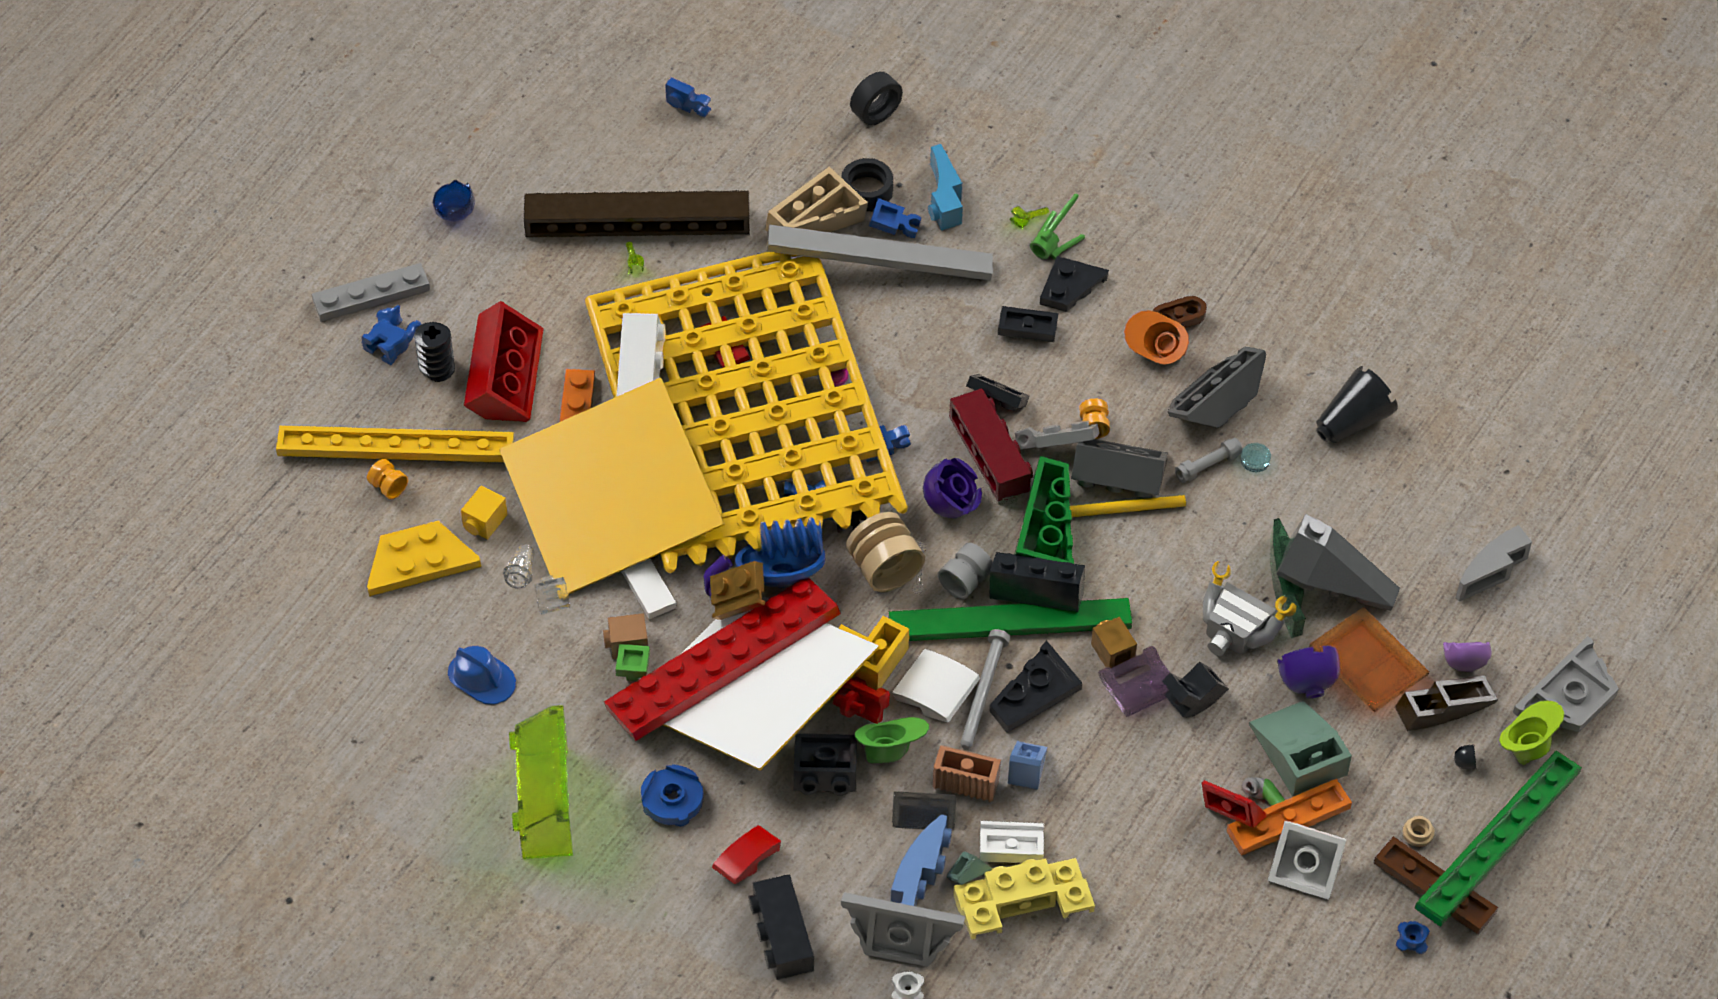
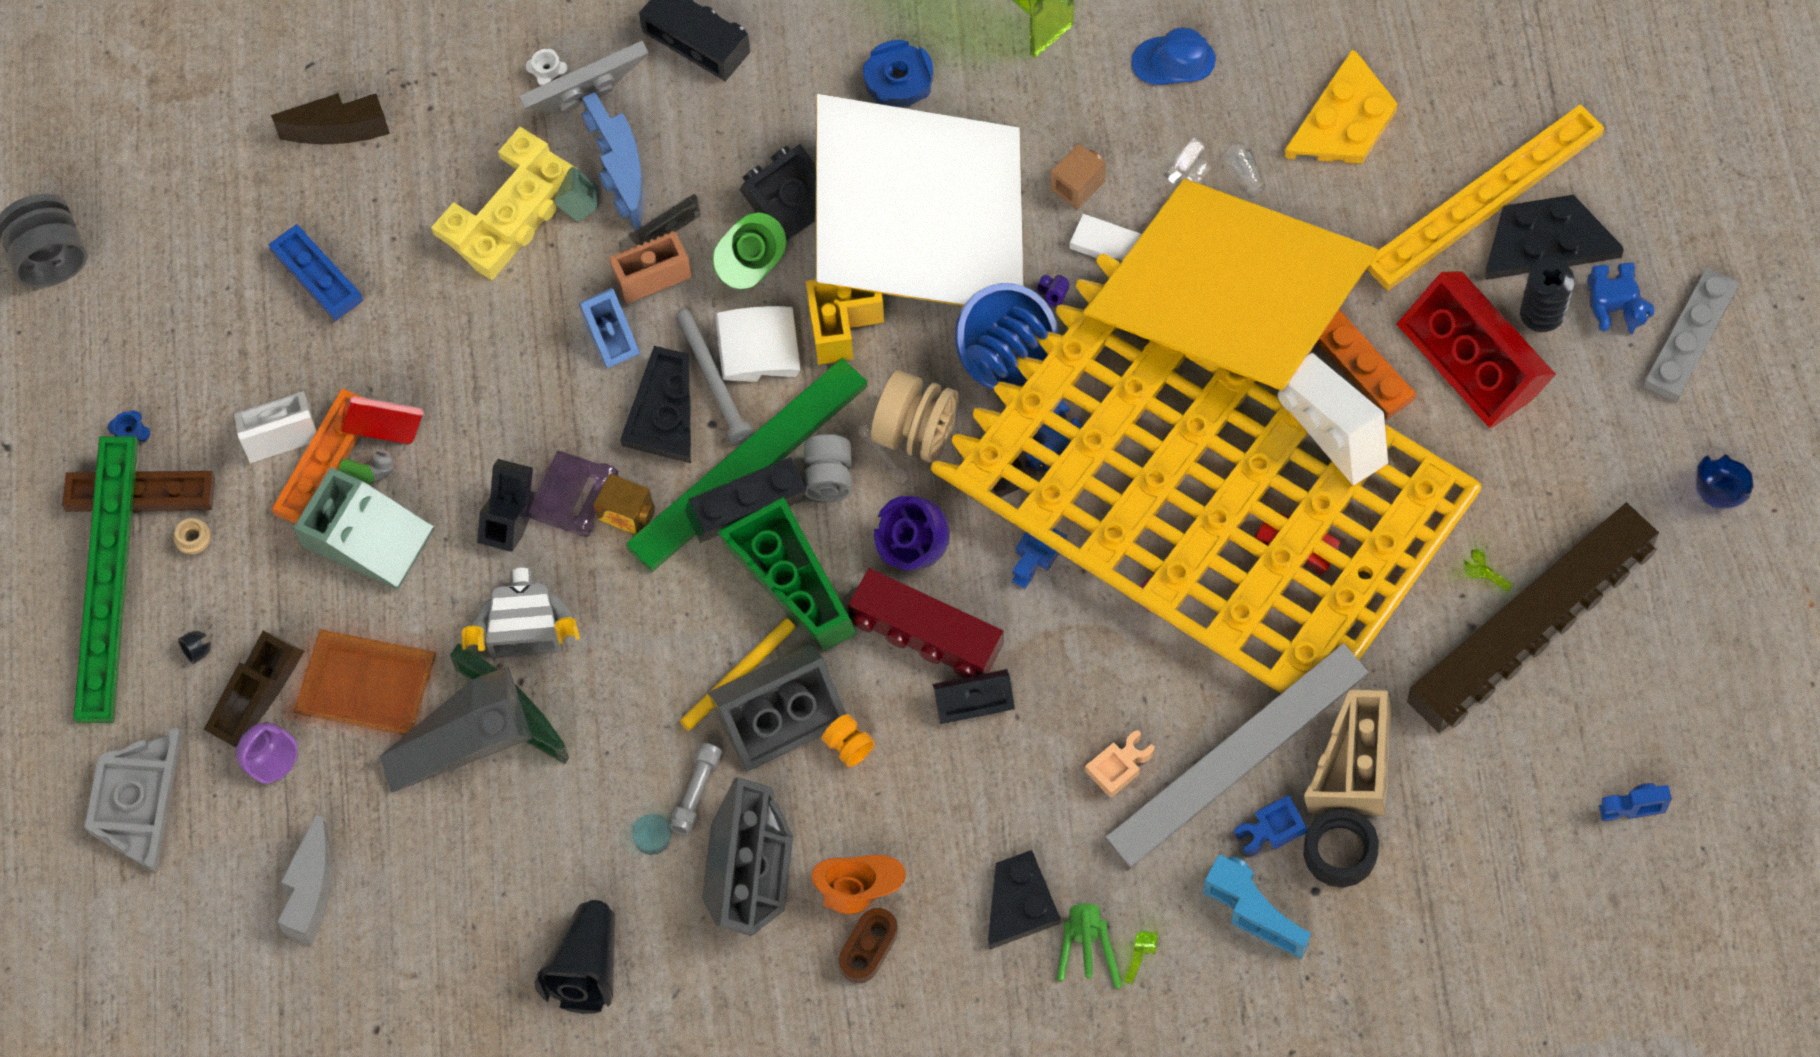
camera: 145 degrees right, 10 degrees up
(385, 400) = (1548, 229): none -> black wing
(385, 476) = (1454, 156): light orange wheel -> none
(484, 512) = (1329, 191): yellow brick -> none
(632, 661) = (1045, 150): bright green tile -> none
(721, 658) = (966, 207): red plate -> none
(737, 590) = (1012, 269): pearl gold plate -> none
(743, 855) = (783, 69): red slope -> none
(861, 700) = (794, 270): red hips -> none
(866, 92) = (1433, 956): black tyre -> none
(950, 304) = (1118, 767): none -> light nougat plate
(1011, 841) = (561, 248): white plate -> none
(1028, 324) = (1015, 806): black plate -> none
(1054, 435) = (862, 683): light grey hinge -> none
(1197, 952) = (315, 272): none -> blue plate
(1310, 671) = (408, 606): dark purple cylinder -> none
(1532, 731) = (141, 704): lime piece -> none

